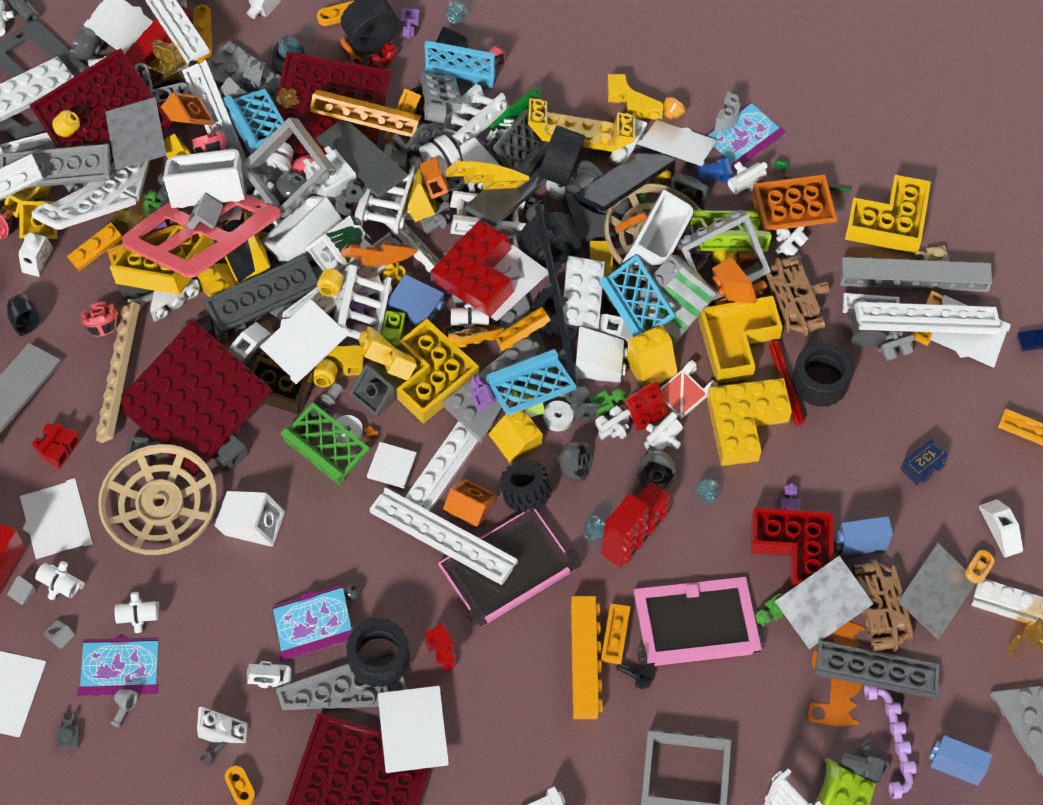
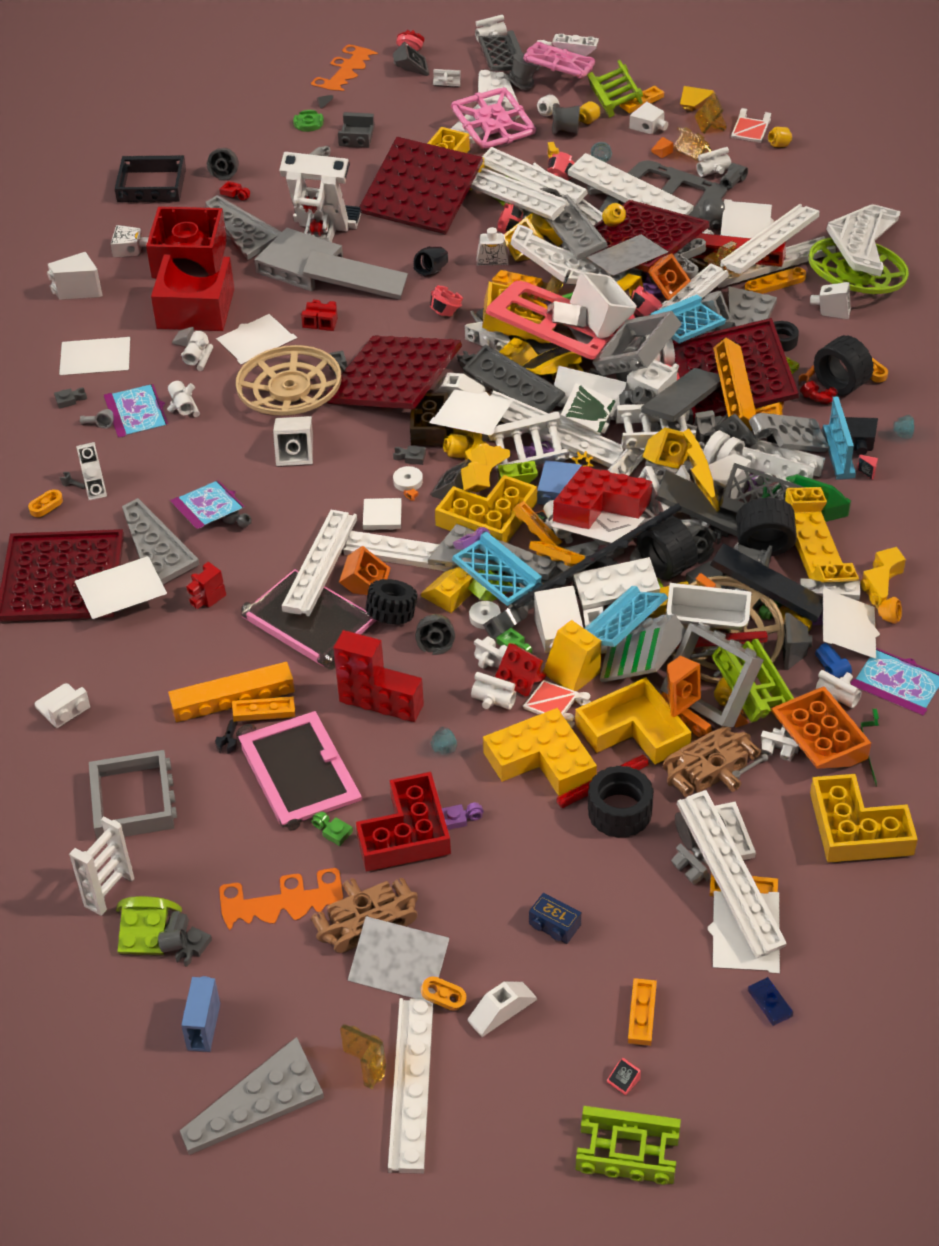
camera: 75 degrees right, 15 degrees down
(59, 634) = (153, 368): light grey slope -> none
(117, 373) = (395, 327): tan plate -> none
(231, 453) = (353, 413): dark grey brick -> none
(253, 74) = (742, 312): light grey brick -> none
(268, 674) = (150, 490): white piece -> none
(287, 98) = (722, 334): clear yellow plant -> none
(290, 44) = (787, 323): clear light blue cone -> none
(313, 455) = (372, 460): bright green fence -> none
(329, 398) = (438, 458): light grey pin -> none
(330, 282) = (537, 407): yellow head -> none
(371, 630) = (183, 556): black tyre -> none
(379, 255) = (589, 441): orange slope -> none
(409, 20) = (876, 399): medium lavender plate -> none
(434, 178) = (678, 448): orange slope -> none
(656, 468) = (452, 694): dark grey cylinder -> none
(729, 114) = (908, 655): light grey cylinder -> none
(824, 602) = (346, 857): flat silver sticker -> none
(863, 536) = (436, 876): medium blue brick -> none
(877, 669) = (289, 926): dark grey tile -> none
(902, 748) = (209, 967): lavender bar -> none
(915, 274) = (795, 864): light grey brick -> none
(933, 254) = (831, 880): tan plate -> none

